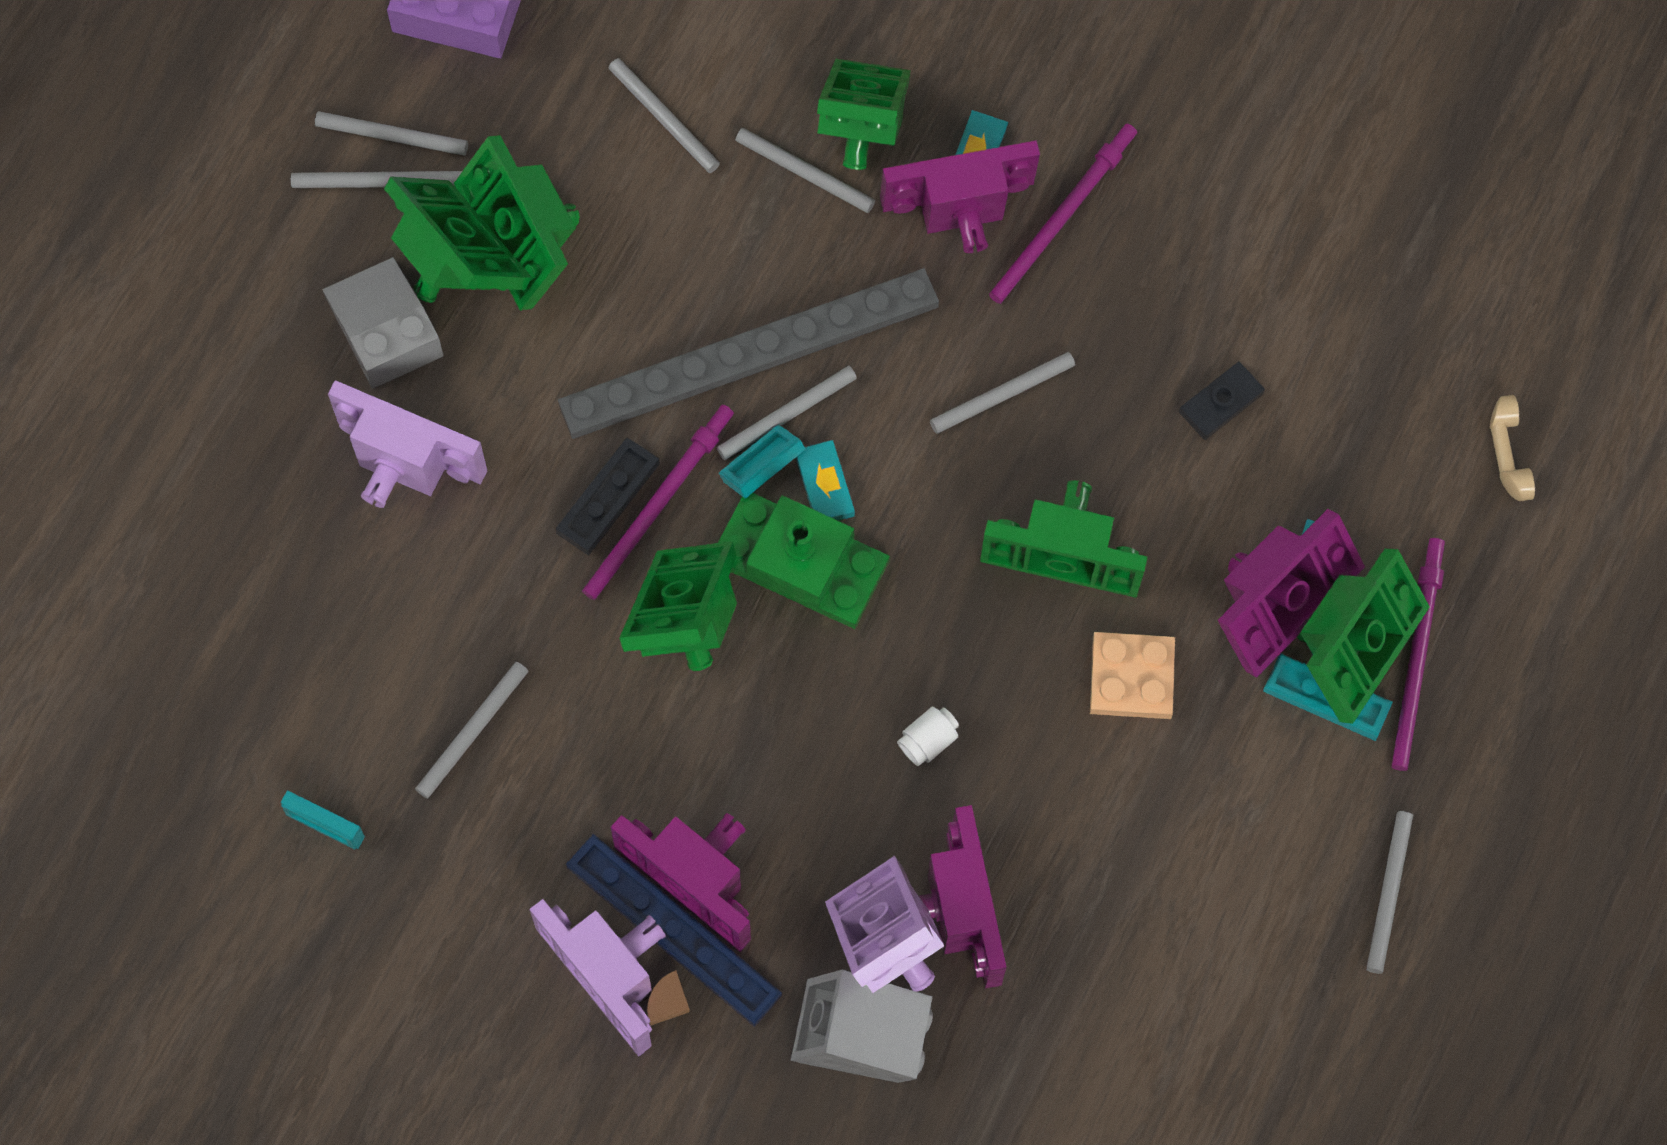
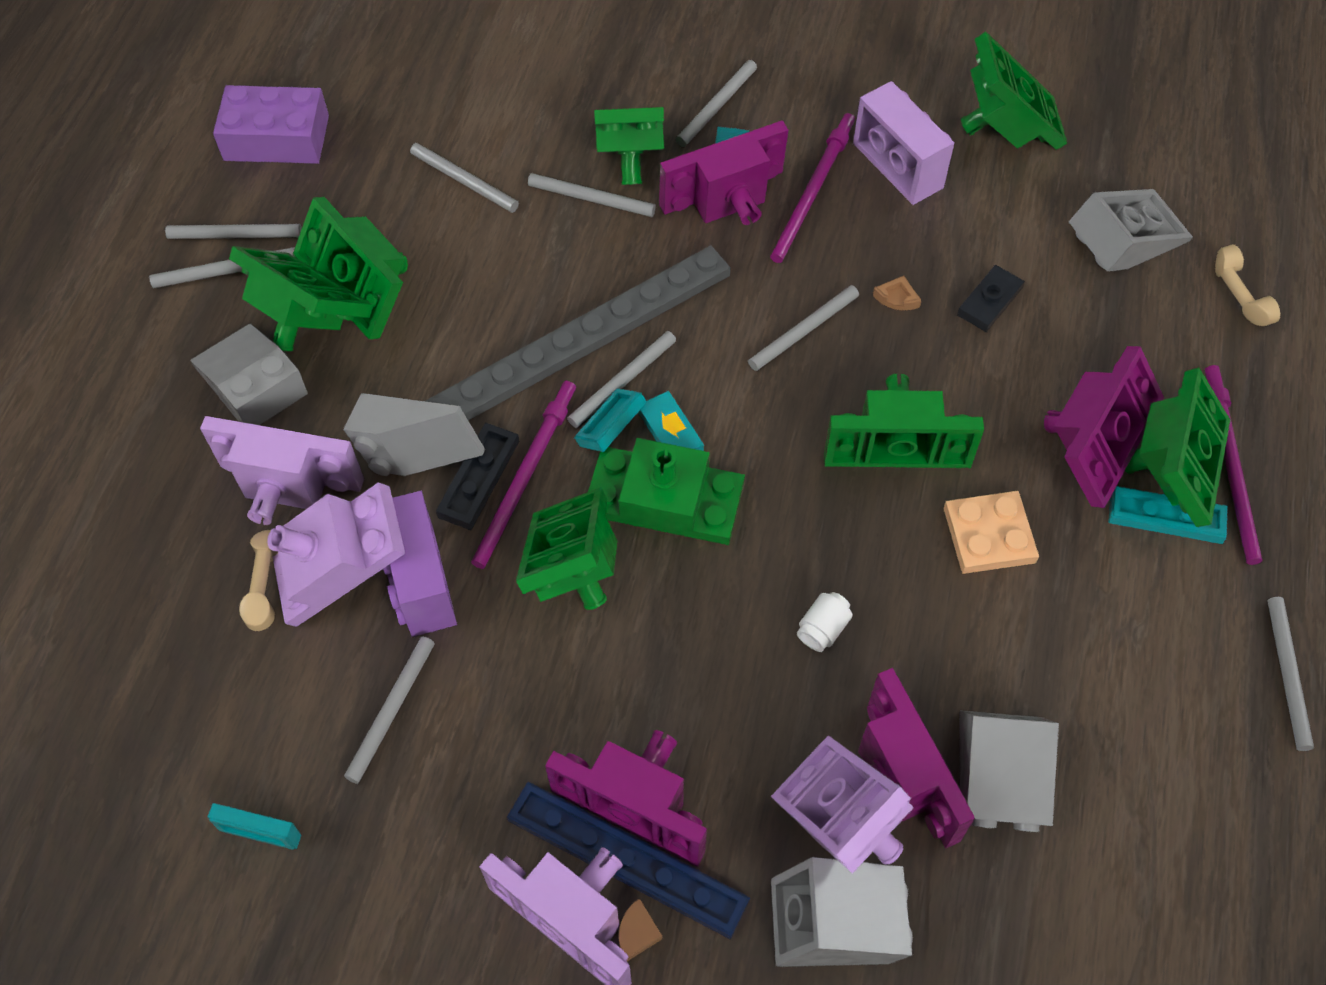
camera: 10 degrees left, 10 degrees down
(353, 593) = (254, 606): none -> tan bar
(444, 557) = (333, 550): none -> lavender brick
(522, 586) = (418, 578): none -> medium lavender brick
(541, 441) = (410, 434): none -> light grey slope
(981, 73) = (716, 103): none -> light grey bar
(1064, 925) = (1008, 768): none -> light grey slope
(1118, 373) = (897, 295): none -> medium nougat tile
(1176, 185) = (903, 142): none -> lavender brick
(1323, 157) = (1011, 99): none -> green brick
(1407, 347) = (1127, 227): none -> light grey slope

